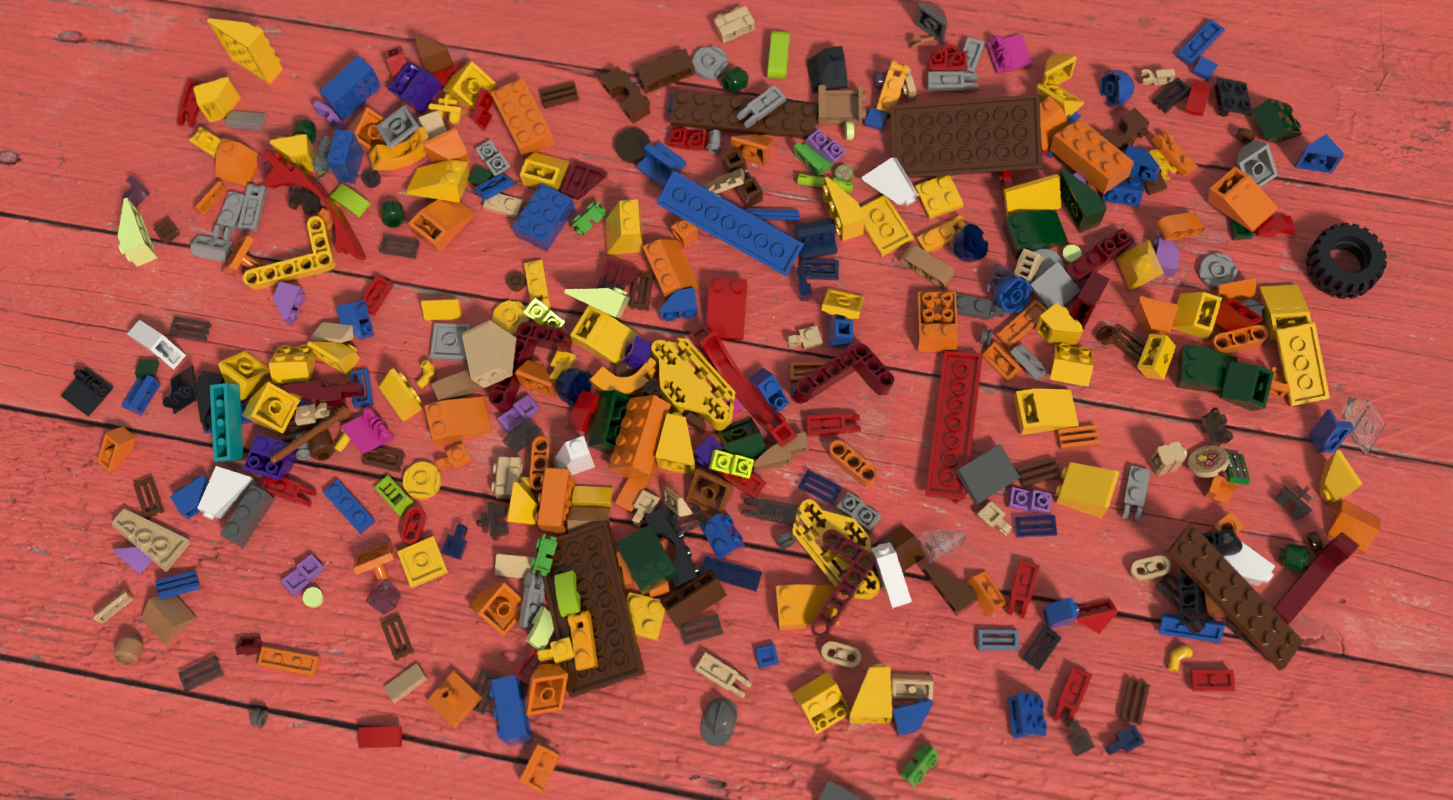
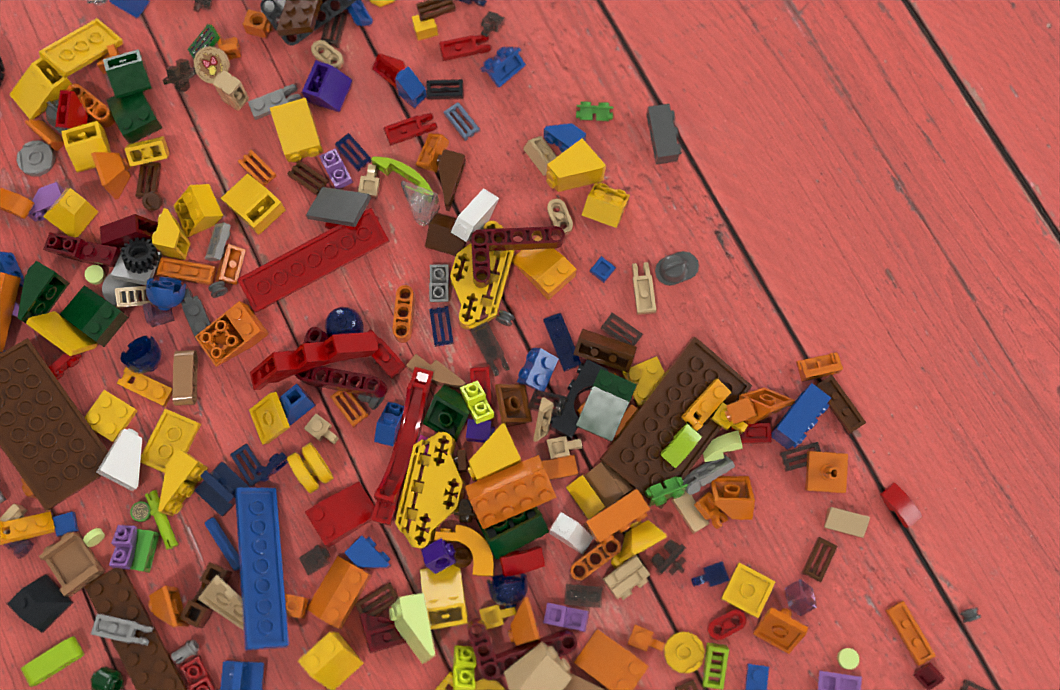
camera: 135 degrees left, 5 degrees up
(495, 759) = (841, 405): none -> reddish brown plate
(509, 578) = (709, 510): none -> orange plate
(552, 658) = (740, 411): none -> orange brick
(708, 268) = (315, 559): none -> clear smoke bracket
(778, 305) = (307, 469): none -> yellow wheel
(862, 366) = (312, 355): none -> red arch
(879, 412) = (343, 321): none -> clear blue cylinder
(953, 559) = (386, 166): none -> lime slope
(1068, 287) = (138, 247): none -> black tyre
(1115, 543) = (326, 86): none -> dark purple slope
(1119, 674) = (424, 29): none -> yellow panel

